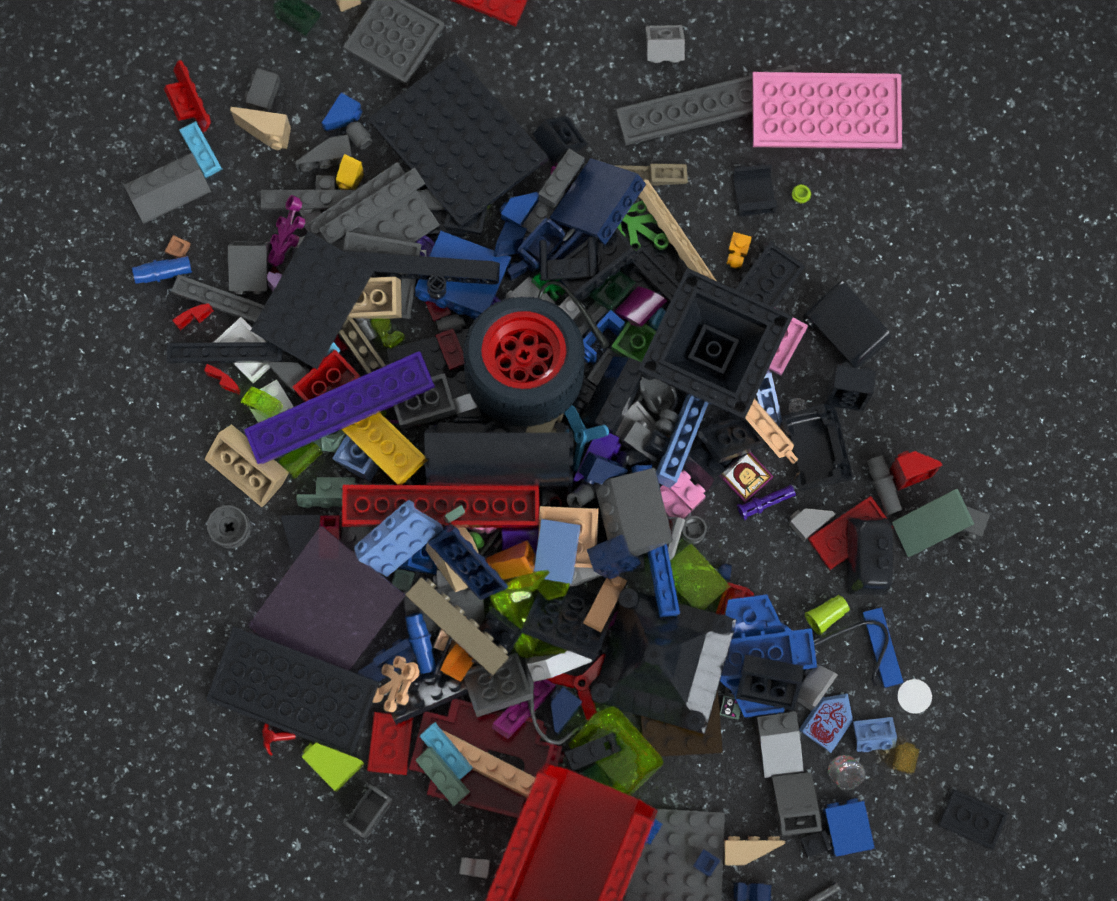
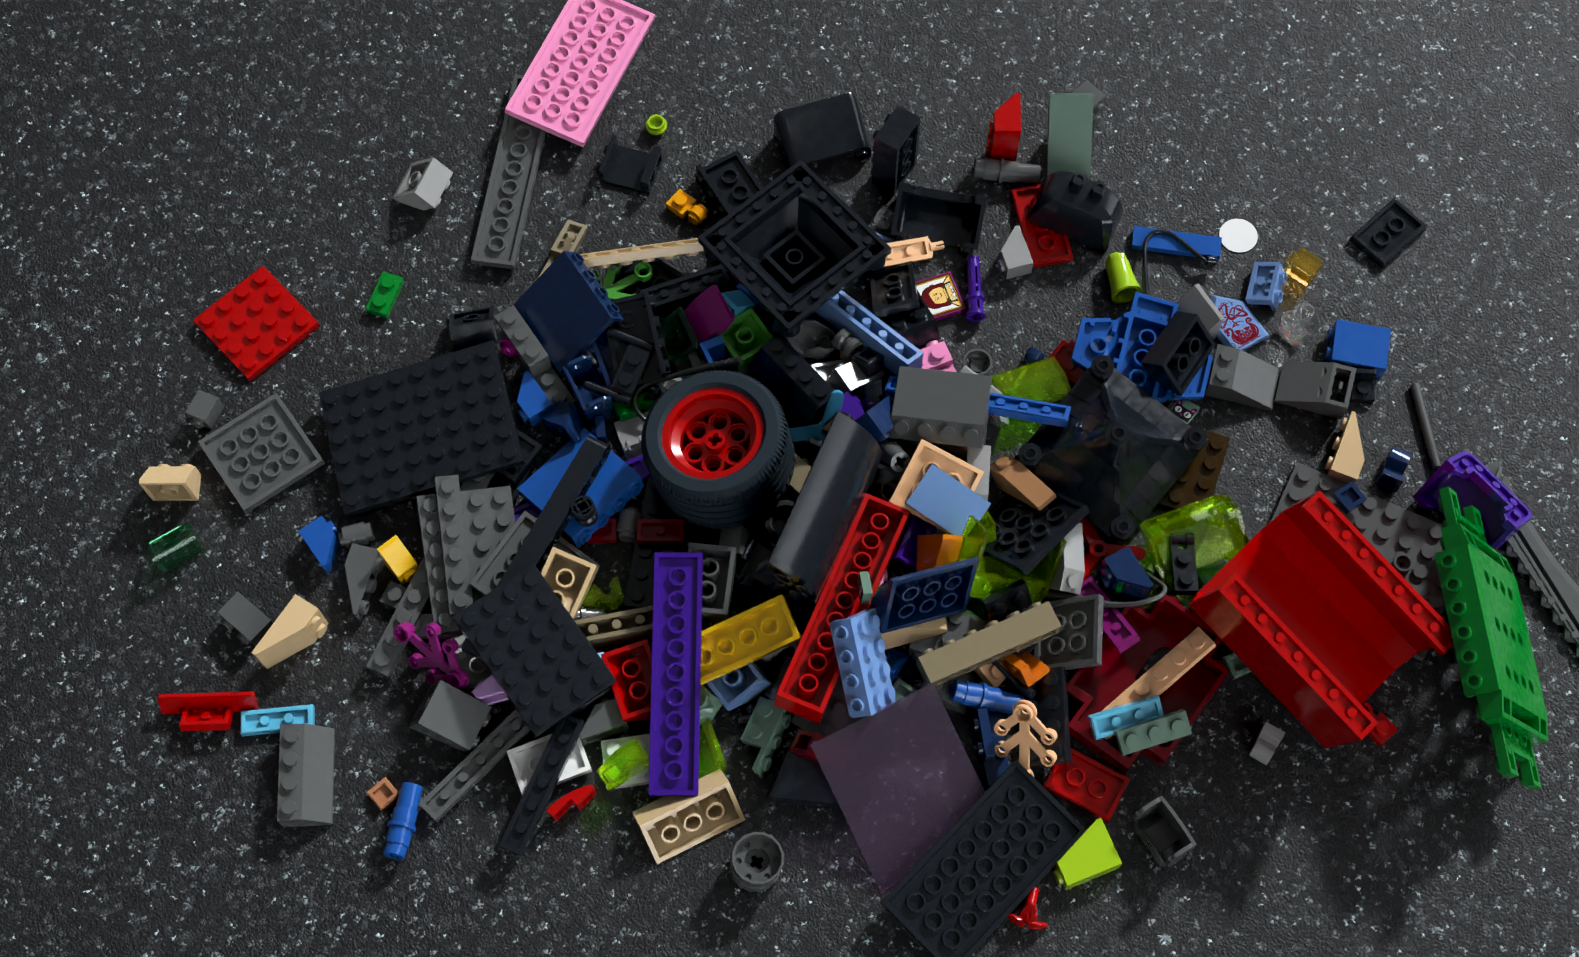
camera: 65 degrees left, 10 degrees down
(198, 312) = (477, 801): red slope -> none
(561, 60) = (385, 295): none -> green plate
(612, 557) = (980, 445): dark blue bracket -> none

